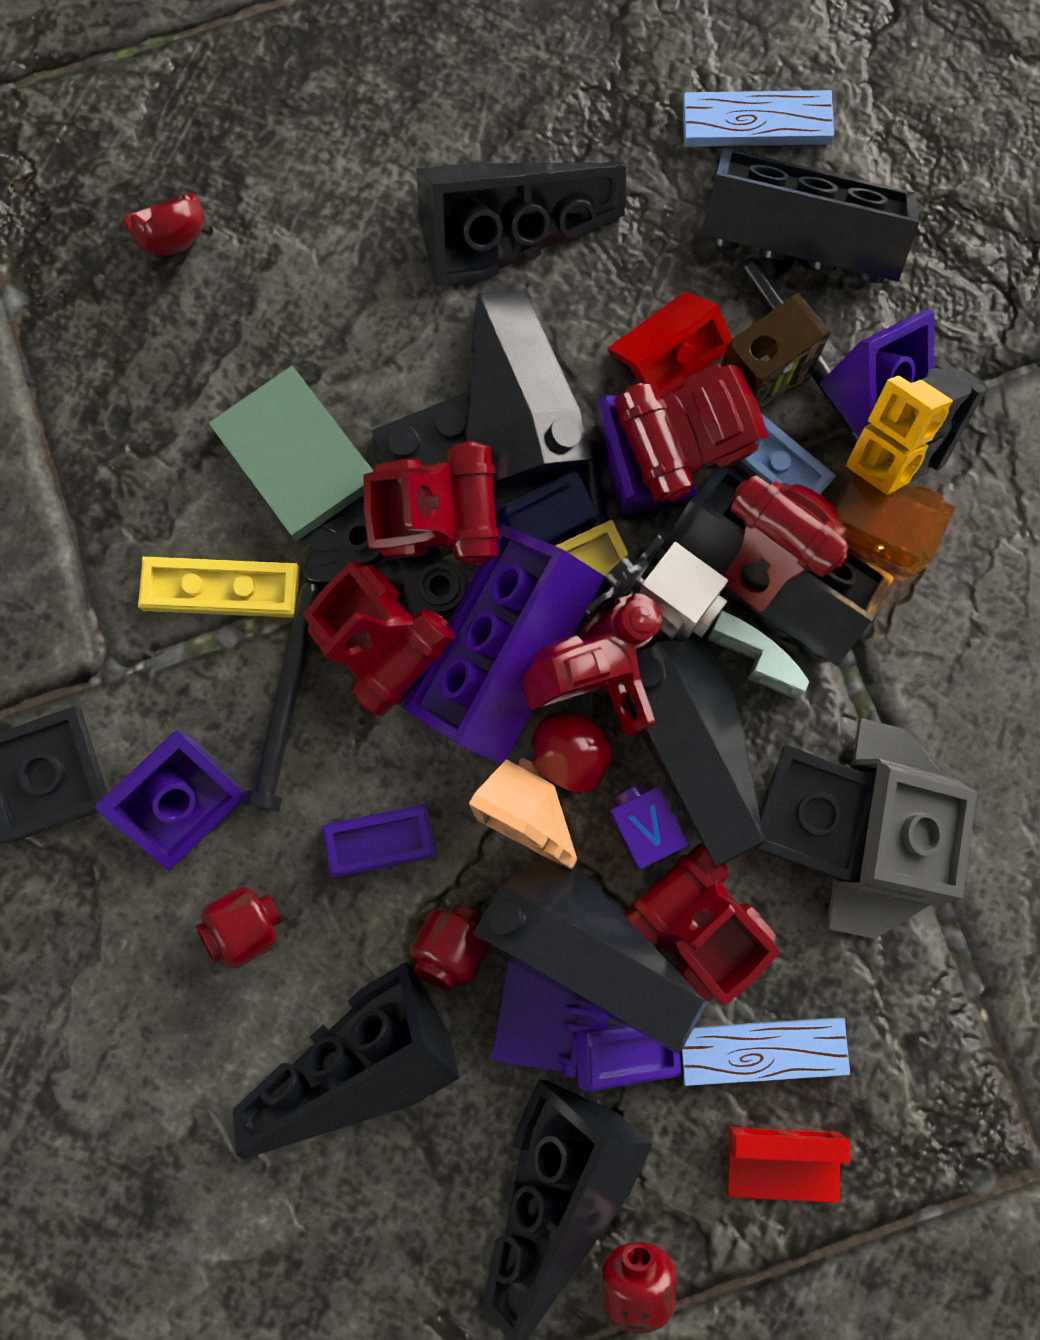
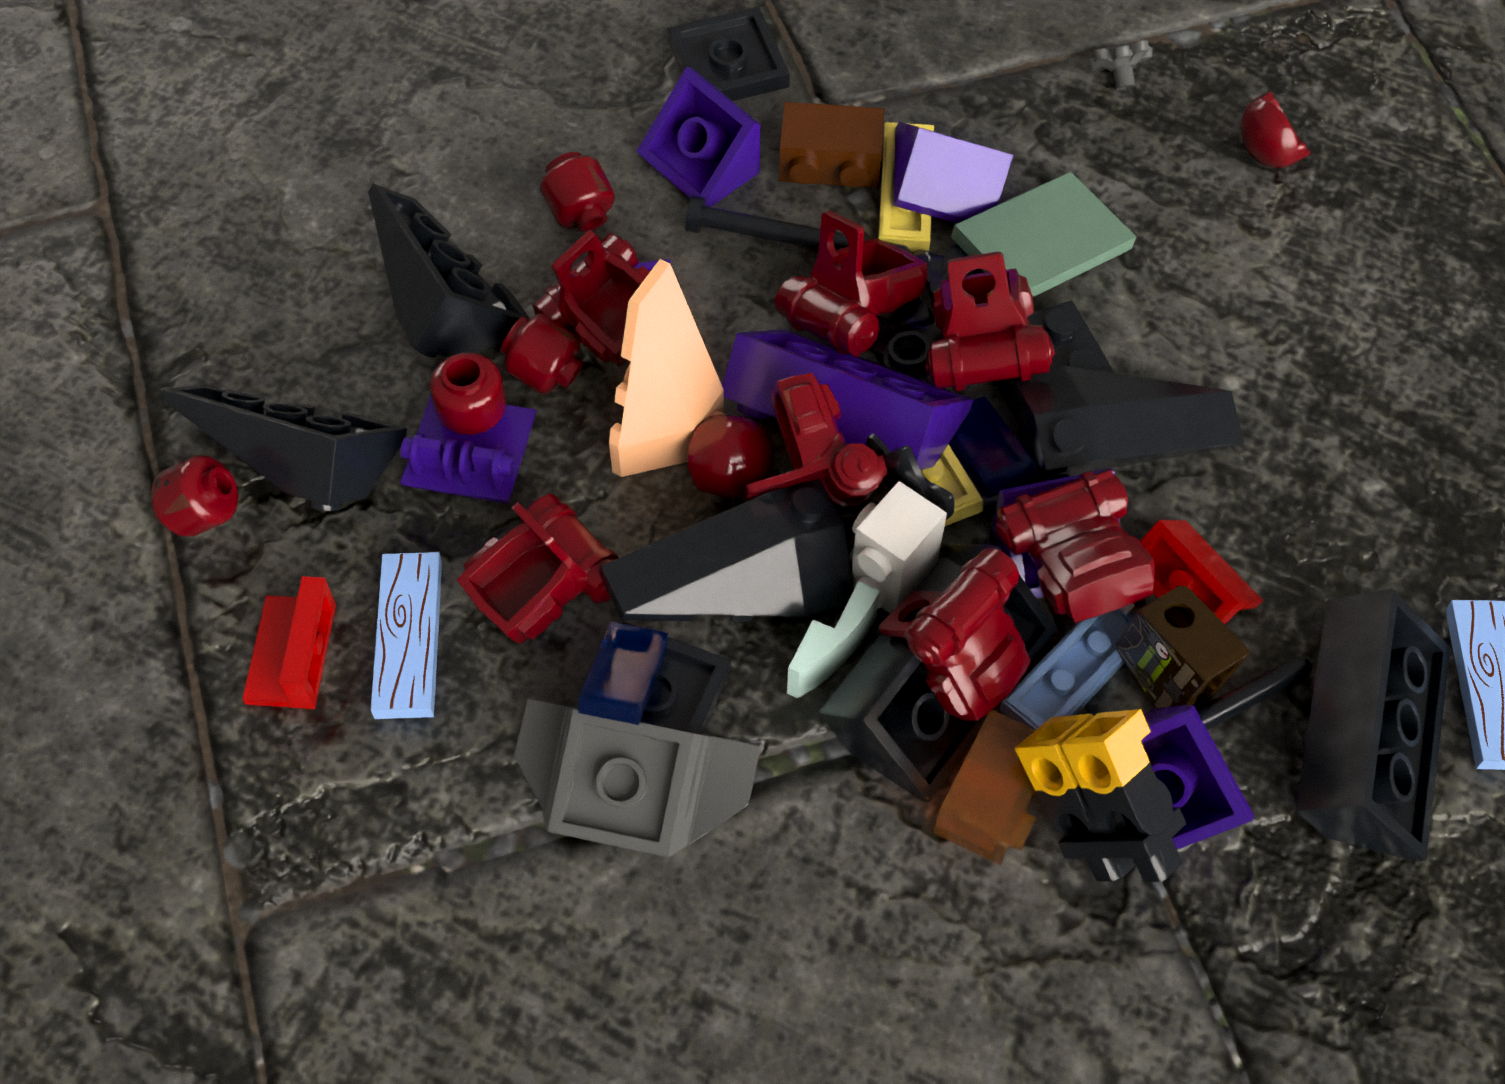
camera: 90 degrees right, 20 degrees down
(60, 363) = (1121, 62): none -> dark grey plant
(175, 660) = (831, 144): none -> reddish brown brick
(214, 541) = (946, 174): none -> slope
(394, 883) = (594, 293): none -> dark red piece
(504, 212) = (1330, 417): black wedge -> none
(527, 1035) = (468, 393): none -> dark red head
(585, 946) = (528, 439): black wedge -> none
(621, 1057) = (420, 495): dark purple tile -> none
(646, 826) = (646, 516): dark purple brick -> none
(827, 836) = (623, 673): none -> clear blue tile

